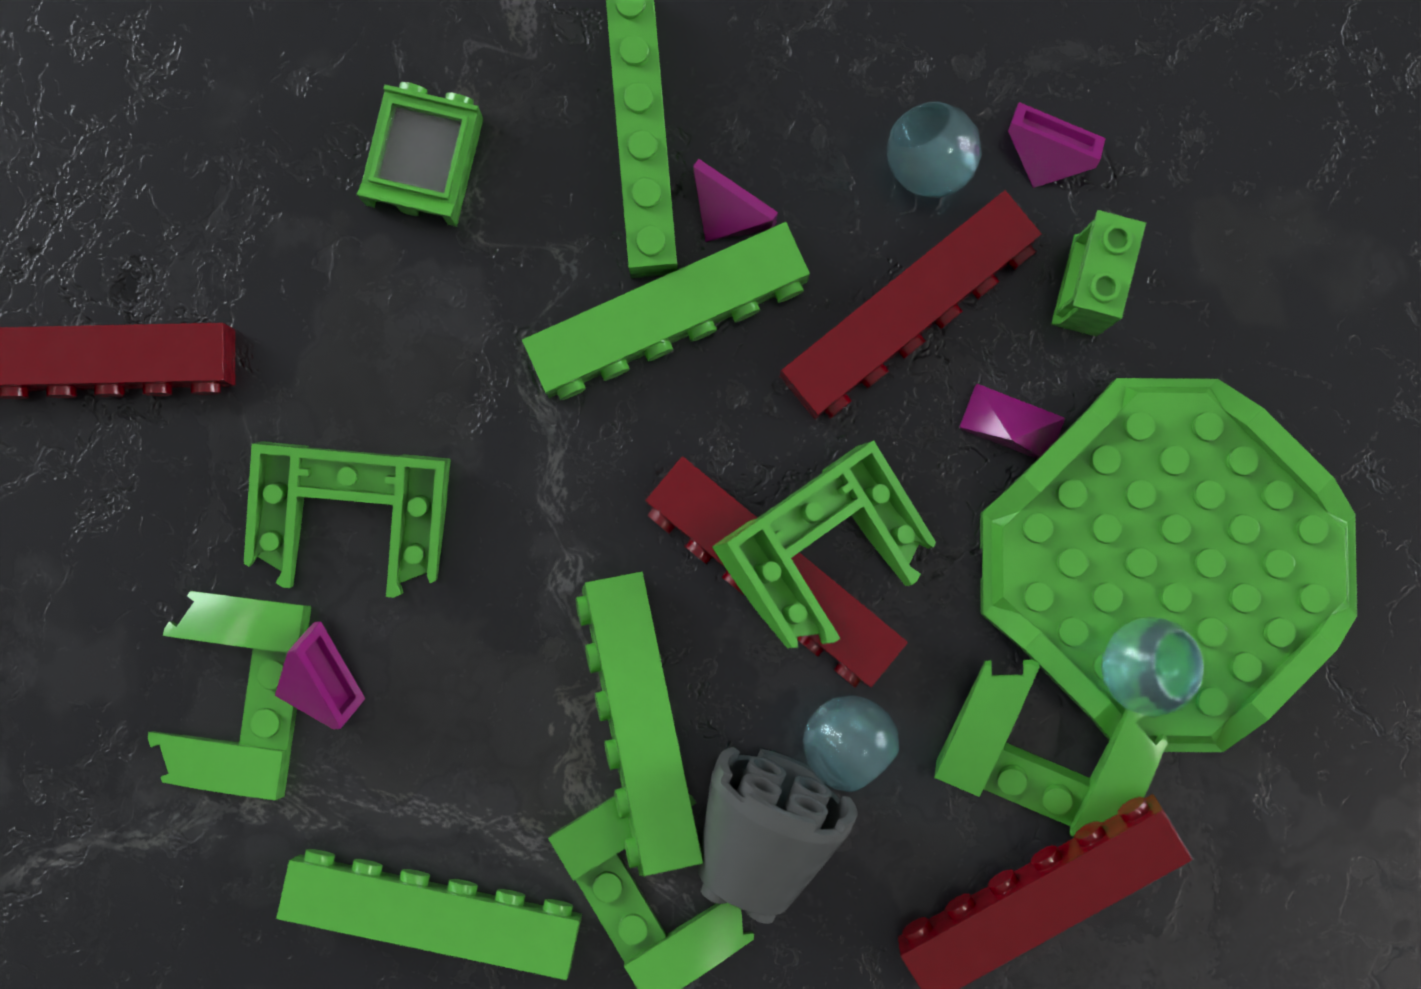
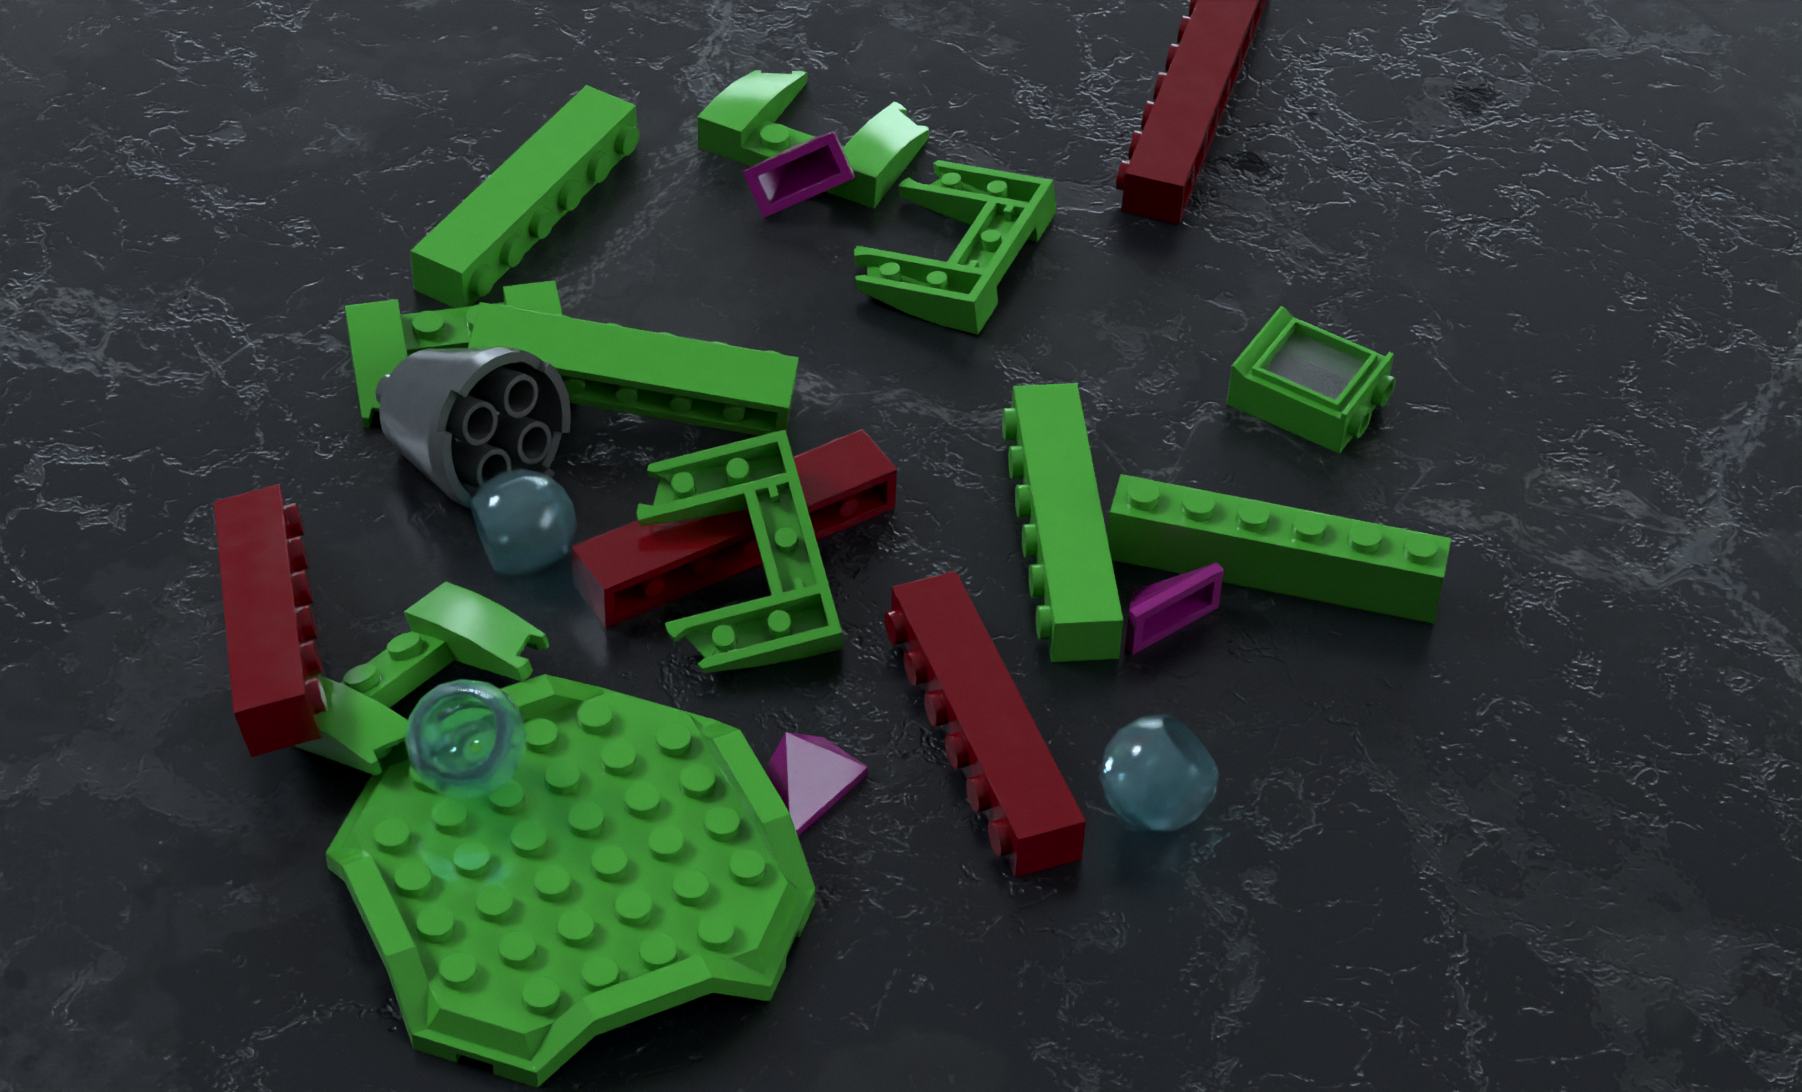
camera: 110 degrees right, 40 degrees down
(1051, 146) = (1134, 916): magenta slope -> none
(1098, 274) = (951, 849): bright green window -> none

